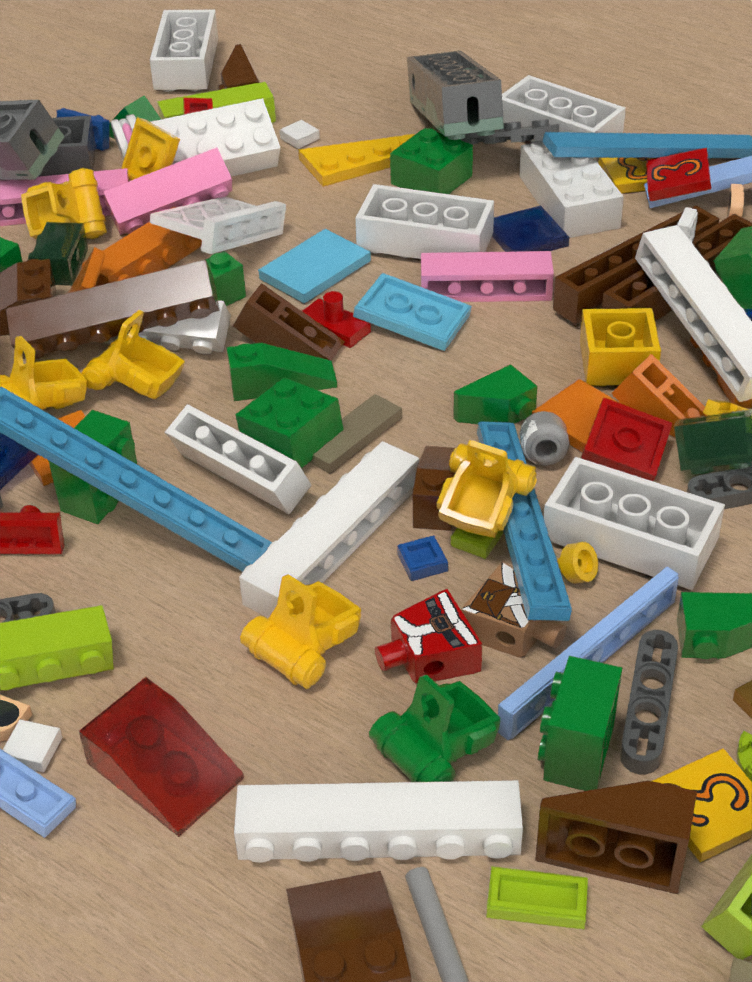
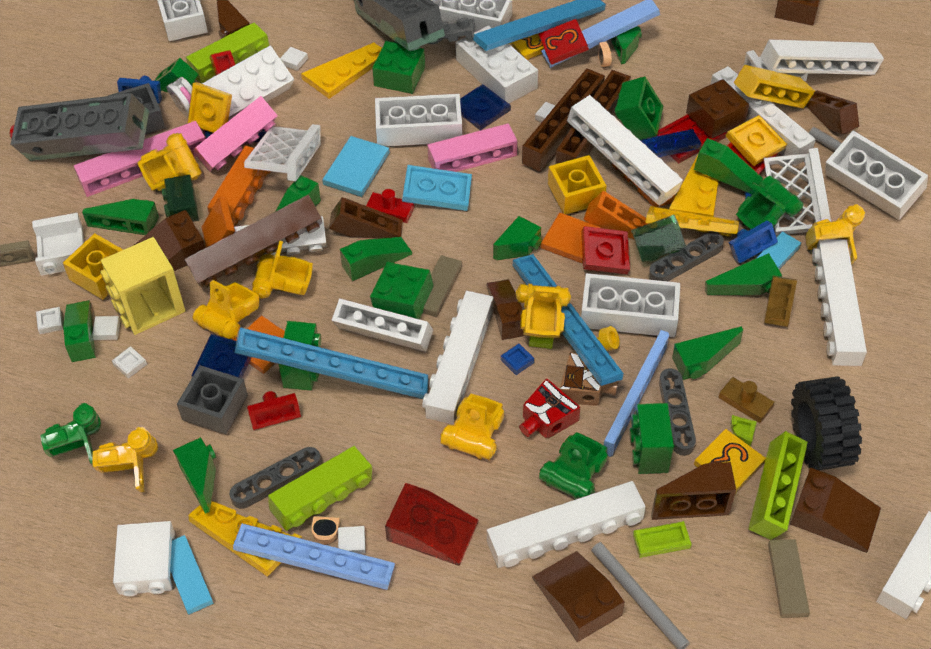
camera: 20 degrees left, 10 degrees up
(544, 438) = (556, 260): light grey head -> none
(688, 222) = (592, 88): white tile -> none

